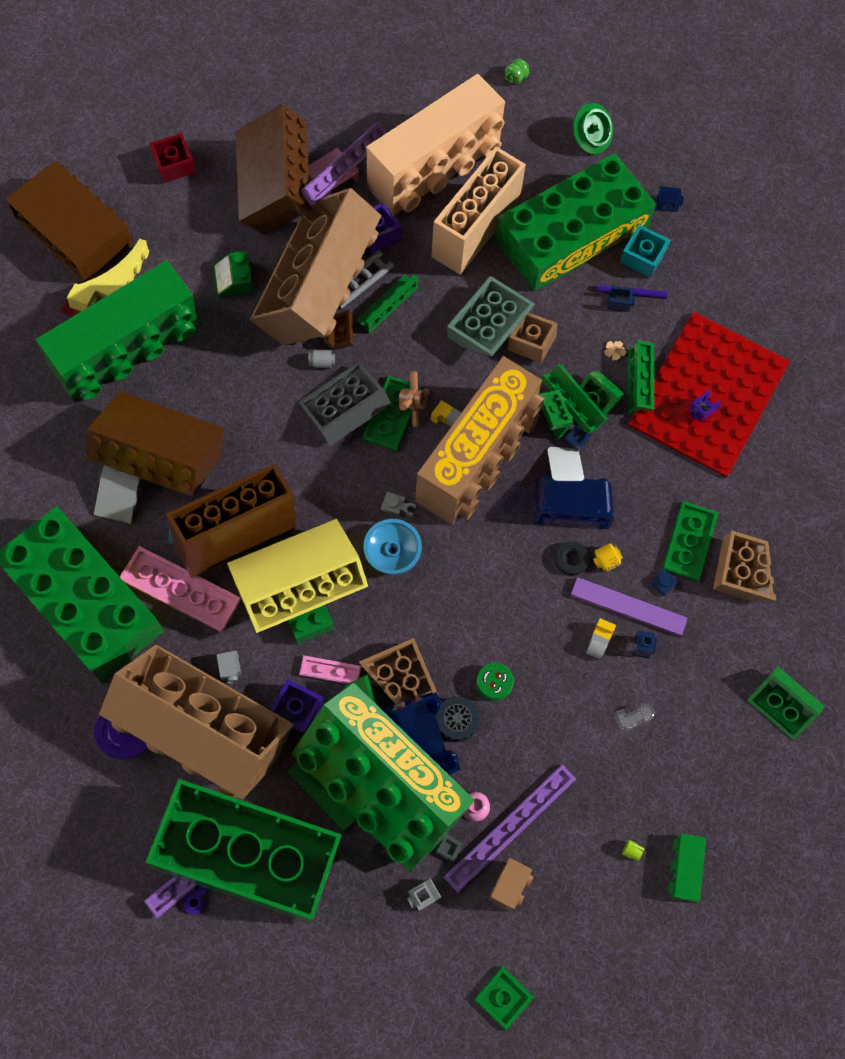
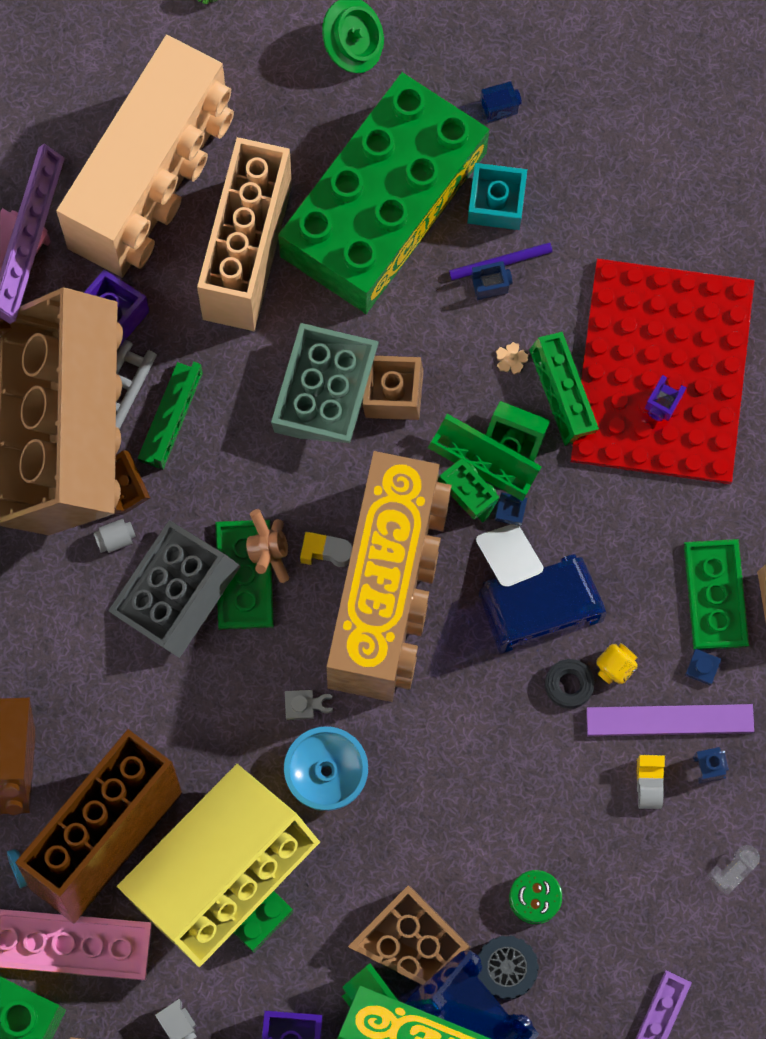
camera: 20 degrees left, 5 degrees up
(329, 670) = (312, 971): bright pink tile -> none

